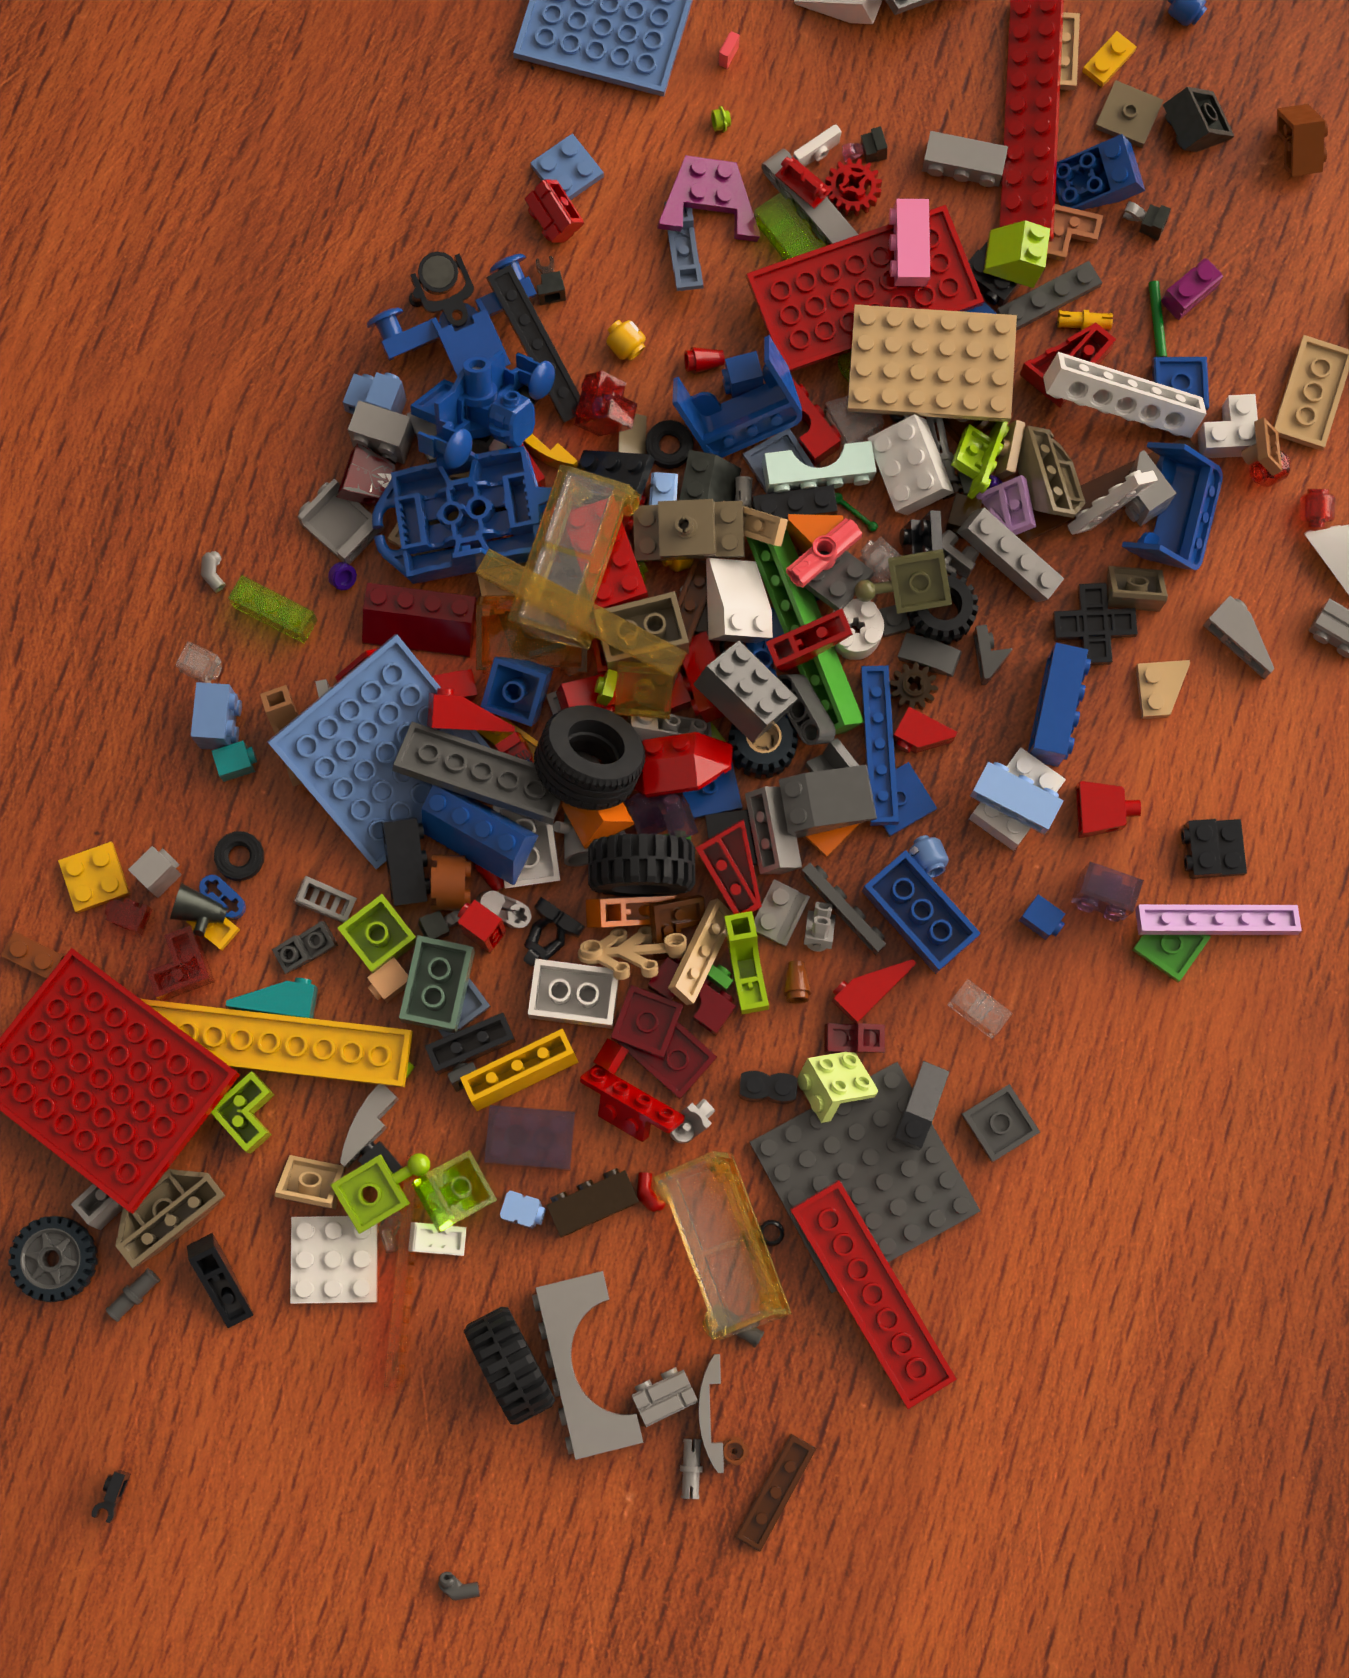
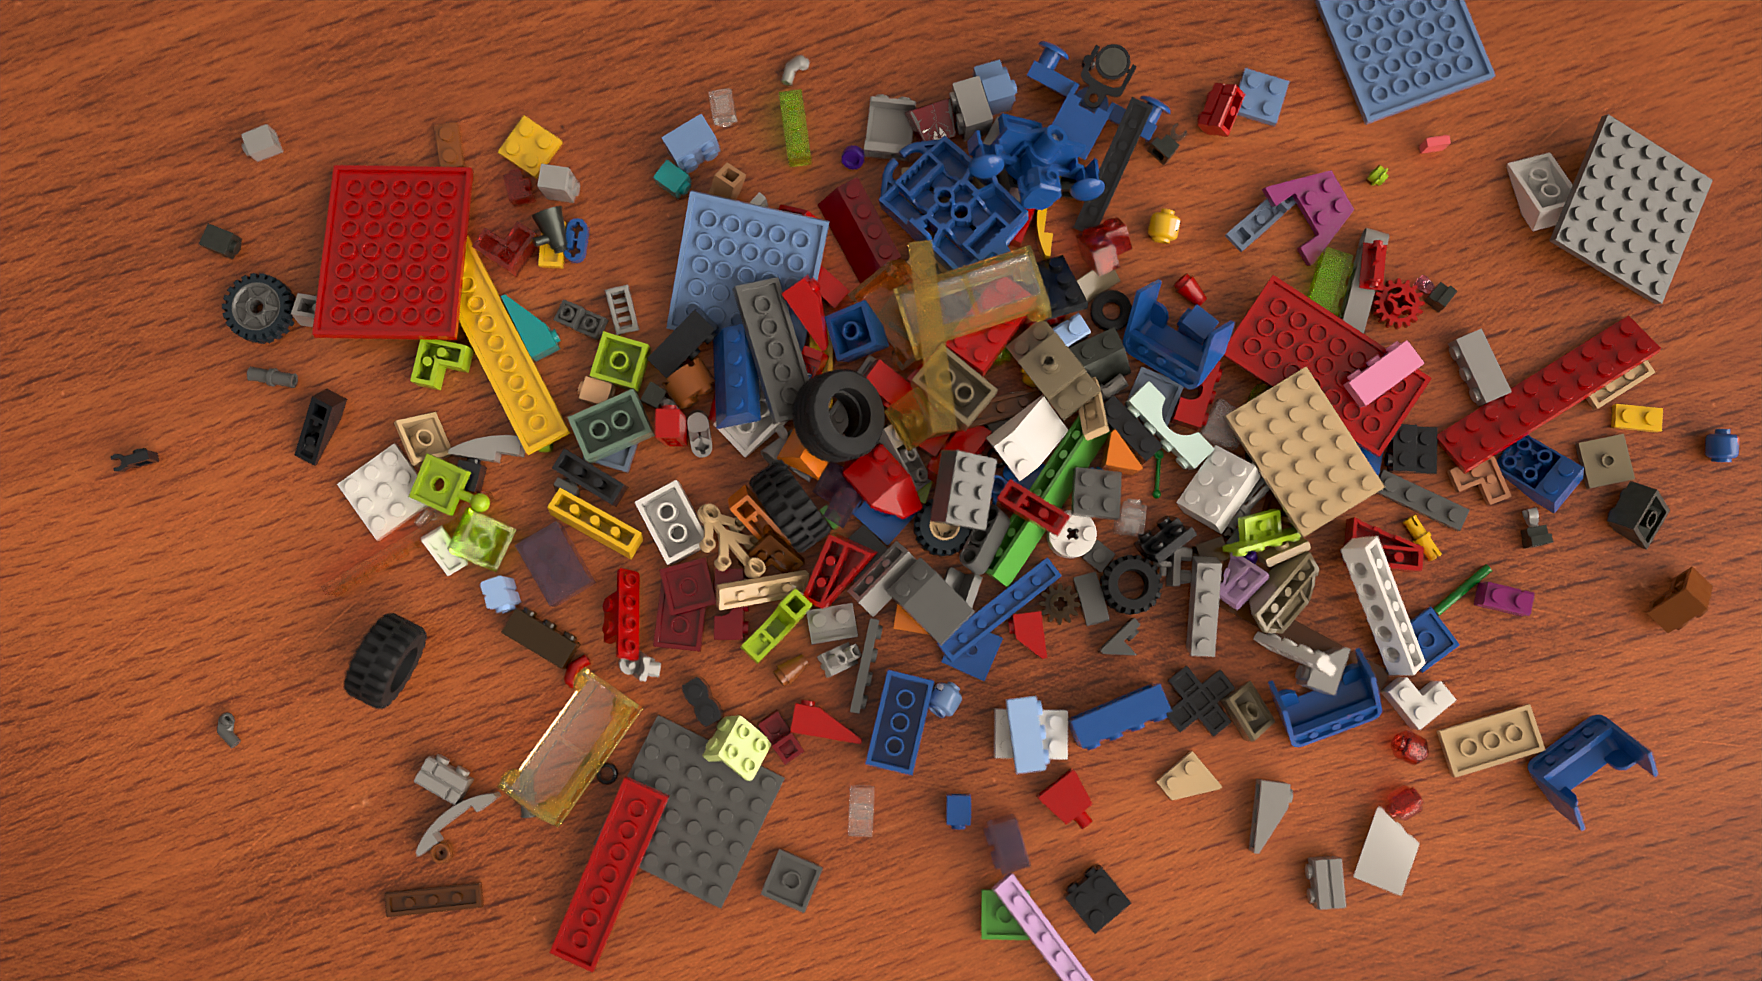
camera: 60 degrees right, 5 degrees up
(166, 1214) = (336, 359): dark tan wedge -> none
(226, 844) = (611, 217): black tyre -> none
(564, 924) = (719, 481): black piece -> none
(589, 1425) = (391, 743): light grey arch -> none
(605, 687) = (898, 391): lime plate -> none
(611, 1056) = (649, 578): red tile -> none
(691, 1468) = (410, 831): light grey pin -> none
(720, 977) = (757, 614): bright green plate -> none
(813, 562) = (1119, 476): coral piece -> none
(819, 146) = (1409, 258): white plate -> none
(916, 580) = (1131, 553): olive plate -> none
(921, 1106) = (762, 817): slope -> none
(1017, 252) = (1435, 454): lime slope -> none
(1266, 447) = (1420, 736): medium nougat tile -> none

